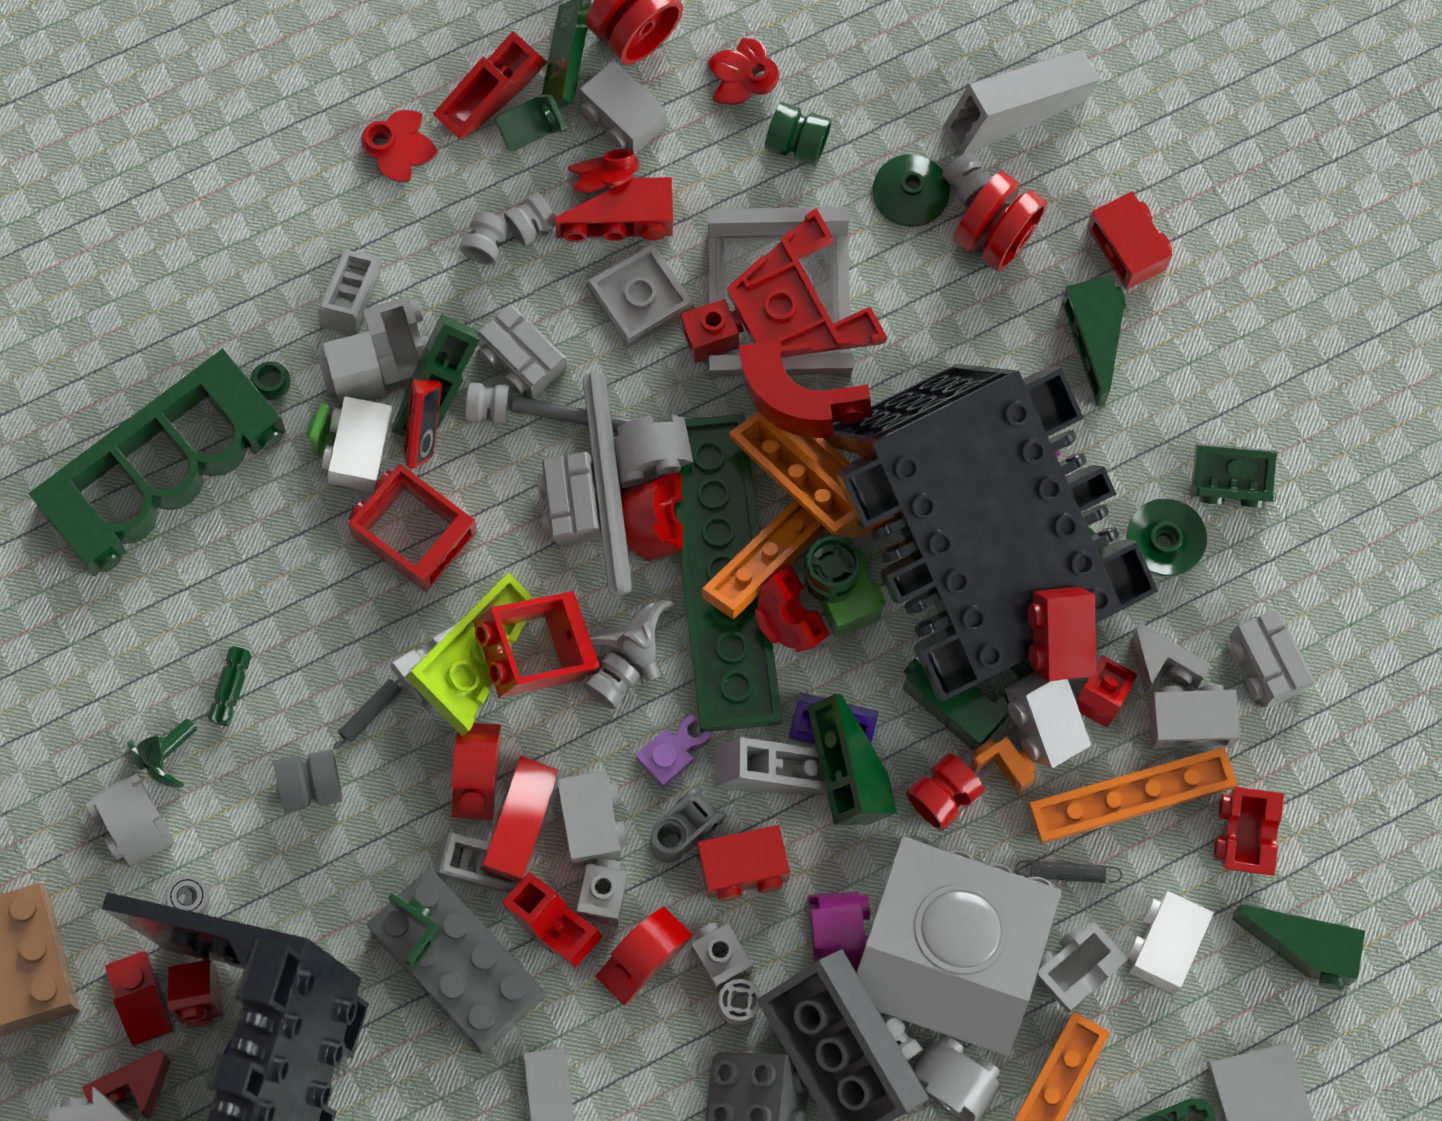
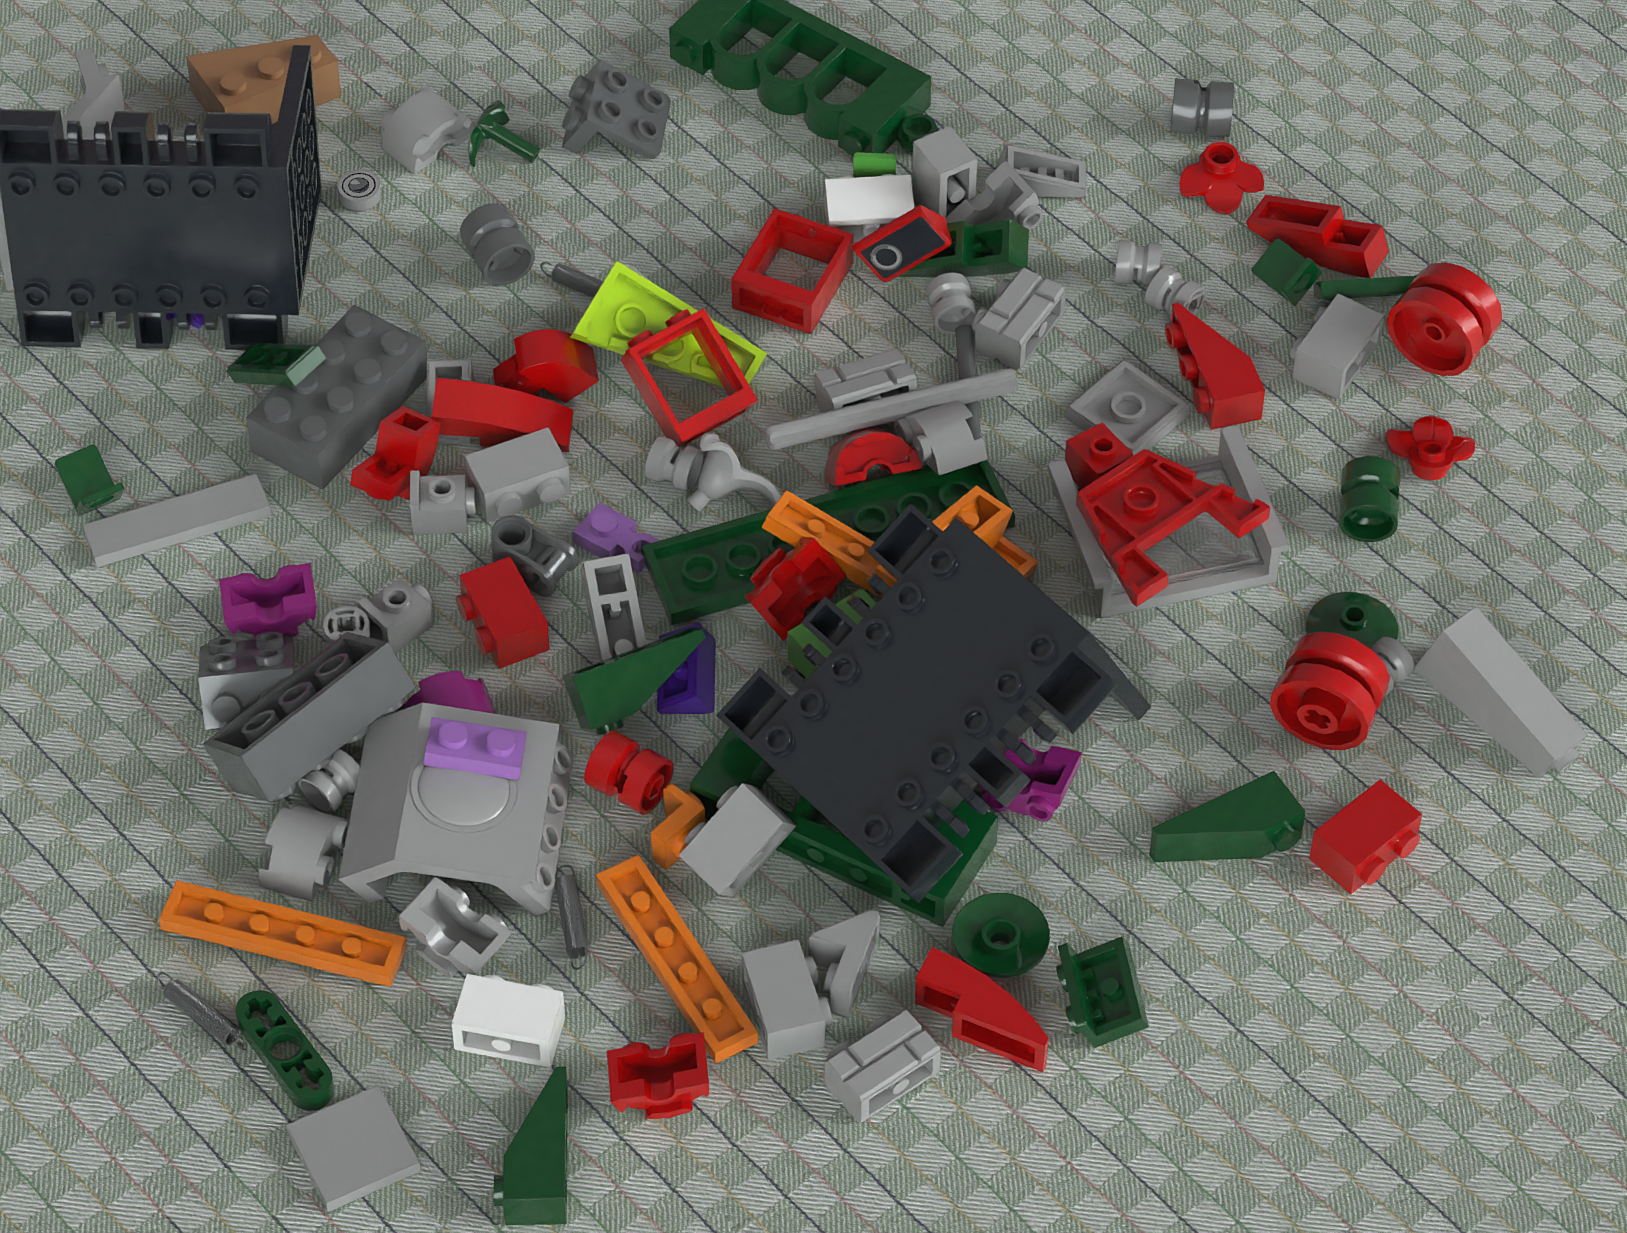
camera: 80 degrees right, 20 degrees down
(165, 641) = (618, 108): none -> dark grey bracket
(229, 686) = (583, 173): dark green axle -> none
(322, 129) = (1202, 107): none -> dark grey wheel
(418, 1009) = (275, 364): none -> dark green tile
(421, 915) = (353, 333): dark green bracket -> none
(611, 170) = (1264, 350): red plate -> none
(643, 954) = (385, 540): red brick -> none
(685, 1063) = (271, 603): none -> magenta cylinder
(793, 406) = (1031, 502): red arch -> none
(832, 569) = (840, 577): dark green wheel -> none
(928, 910) = (475, 748): none -> medium lavender plate
(1063, 633) = (820, 793): red brick -> none
(1105, 691) = (790, 902): red slope -> none
(1231, 572) = (980, 1010): none -> red slope

